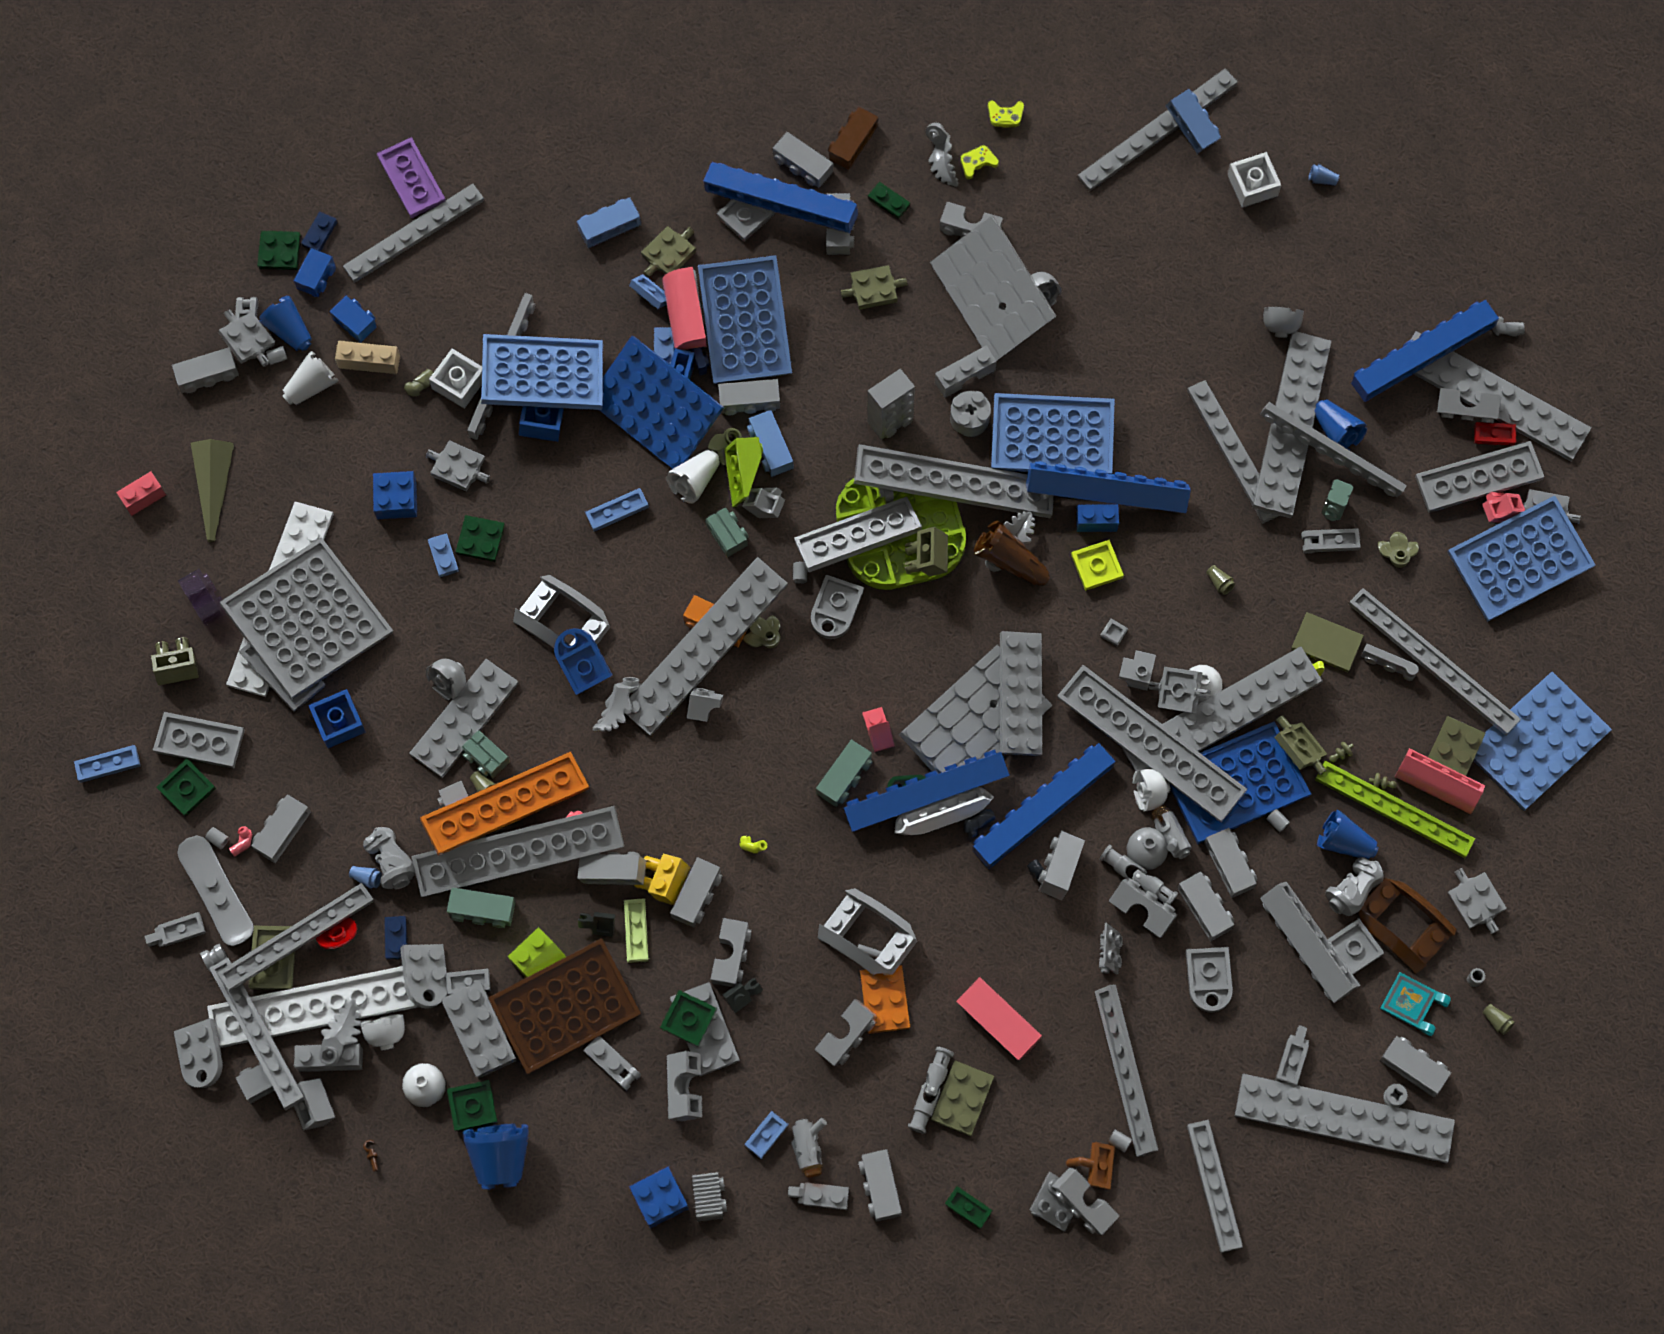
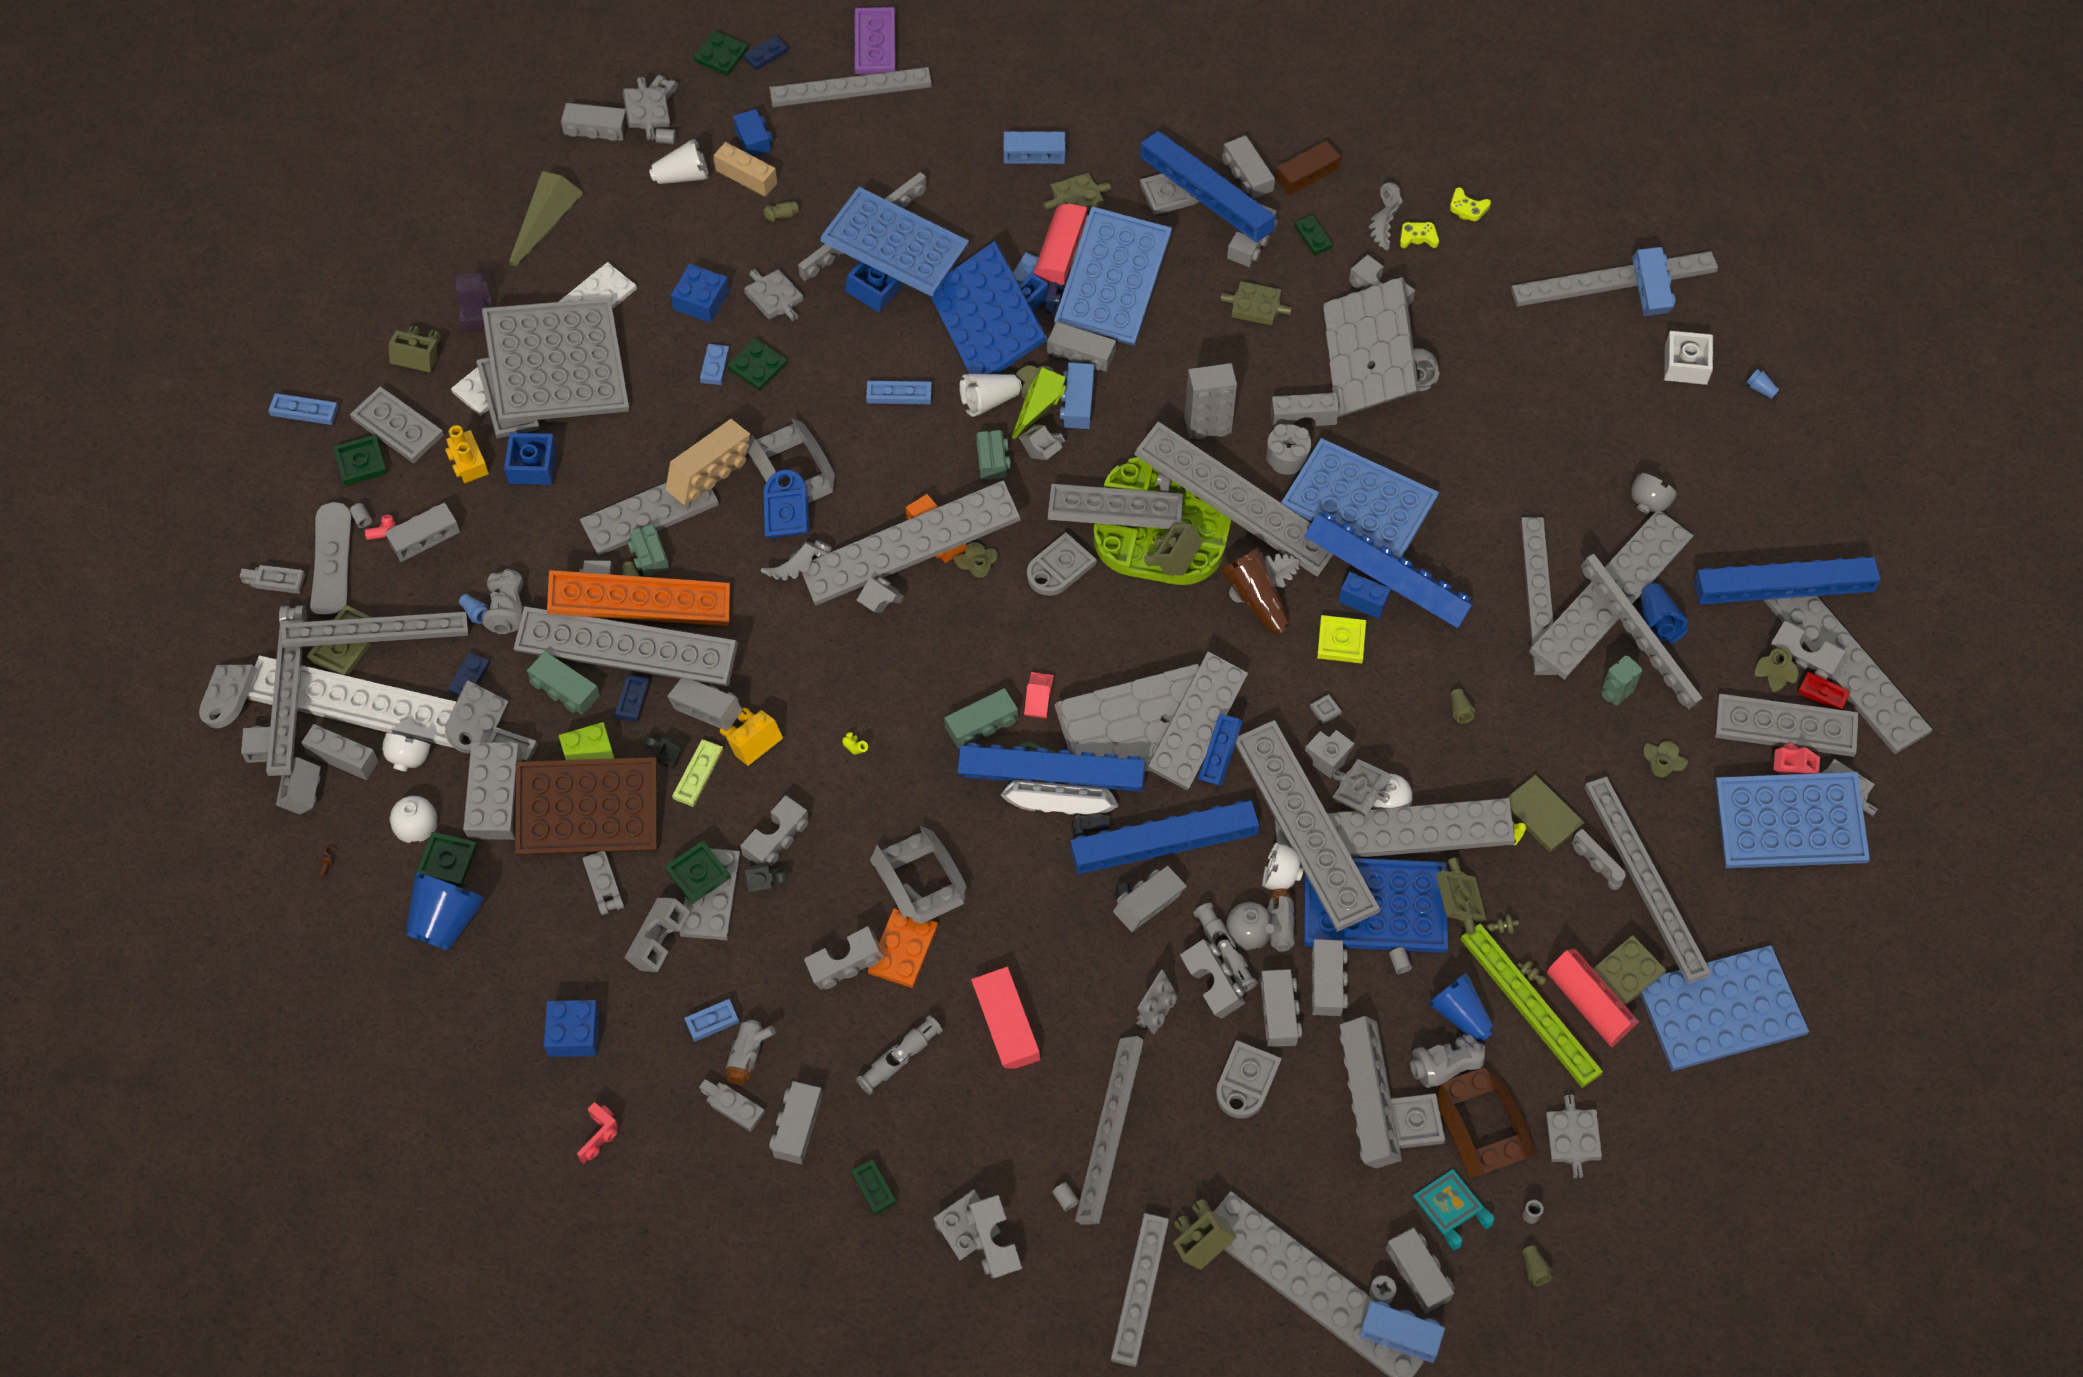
camera: 25 degrees right, 10 degrees down
(141, 493) = (474, 197): coral brick -> none
(278, 741) = (466, 454): none -> yellow brick
(287, 324) = (688, 109): blue cone -> none
(314, 272) = (740, 82): blue brick -> none
(338, 935) = (416, 647): red dish -> none
(340, 1033) = (361, 732): light grey plant -> none
(448, 677) = (653, 467): light grey cylinder -> none
(457, 378) = (812, 216): white brick -> none
(496, 653) = (707, 462): none -> tan brick
(546, 892) = (632, 698): none -> dark blue plate
(649, 290) = (1038, 218): medium blue plate -> none
(696, 892) = (774, 762): light grey brick -> none
(708, 1196) = (620, 1051): light grey brick -> none
(725, 1257) = (603, 1117): none -> coral bracket
(799, 572) = (1041, 521): light grey hinge -> none
(962, 1098) = (928, 1079): olive plate -> none
(1051, 710) = (1220, 750): none -> blue plate
(1099, 1165) = (1030, 1210): dark orange plate -> none
(1246, 1122) = (1204, 1238): none -> olive brick
(1293, 1057) = (1292, 1200): light grey hinge -> none
(1331, 540) = (1596, 719): light grey plate -> none
(1428, 1122) = (1402, 1331): none -> medium blue brick
(1451, 433) = (1777, 672): none -> olive plate
(1508, 328) = (1889, 600): light grey arm -> none

